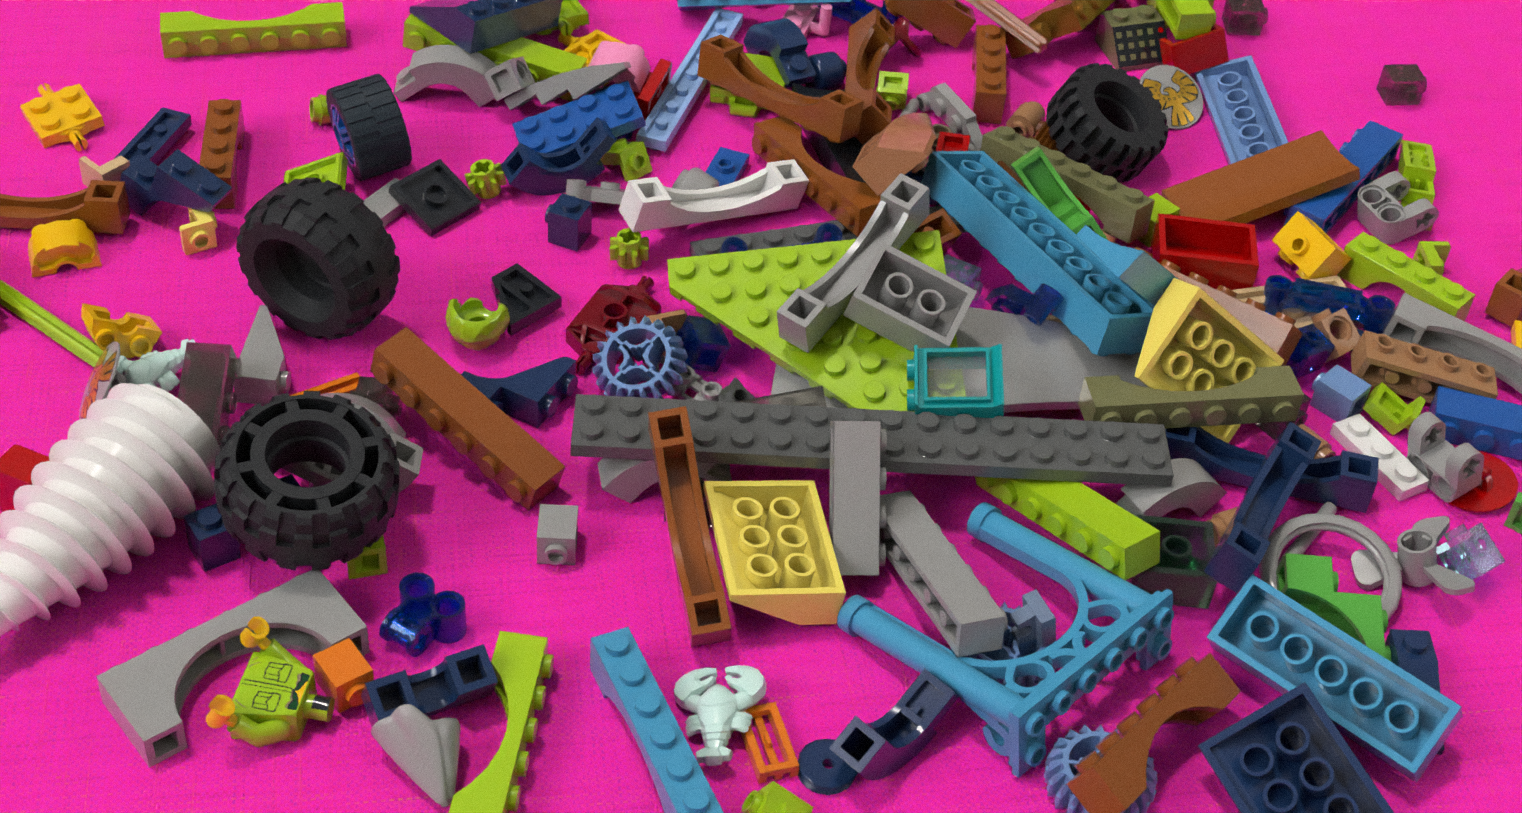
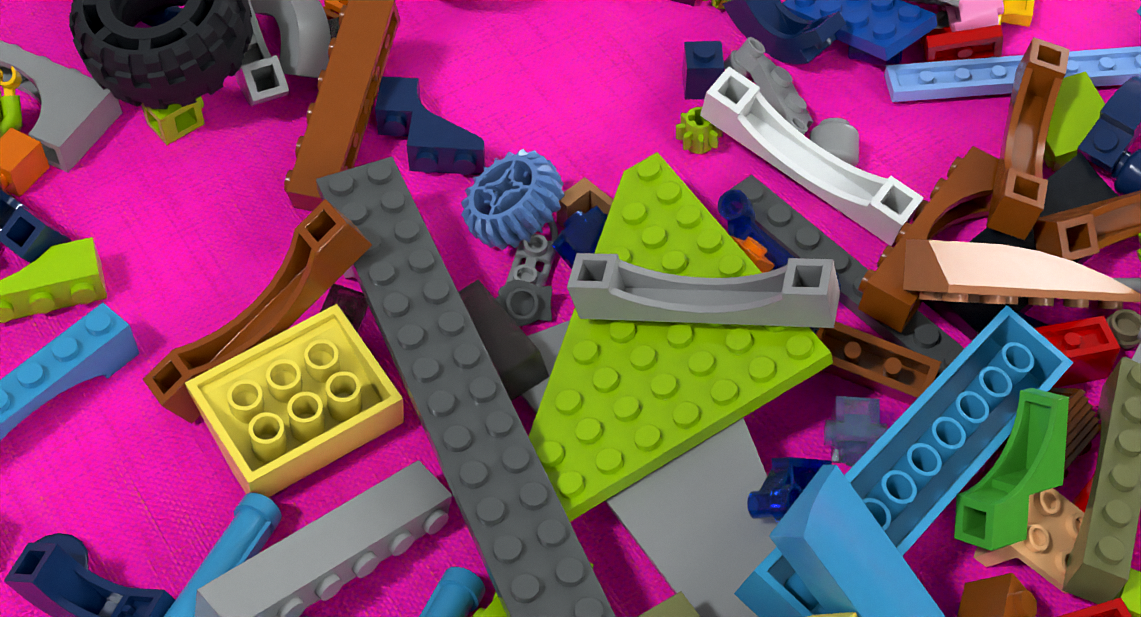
camera: 70 degrees right, 10 degrees up
(424, 615) = (107, 184): clear blue piece -> none
(474, 324) = (499, 62): lime hair -> none
(524, 297) = (570, 84): black wing -> none
(557, 534) = (253, 235): light grey brick -> none
(596, 317) = (611, 151): dark red plate -> none
(631, 158) = (846, 76): lime bracket -> none
(717, 708) = (84, 443): light aqua animal -> none
(728, 165) = (900, 160): blue plate -> none
(774, 768) = (70, 507): orange tile -> none
(855, 495) = (378, 433): light grey brick -> none
(909, 301) = (666, 359): light grey brick -> none
(957, 381) = (587, 461): teal window -> none

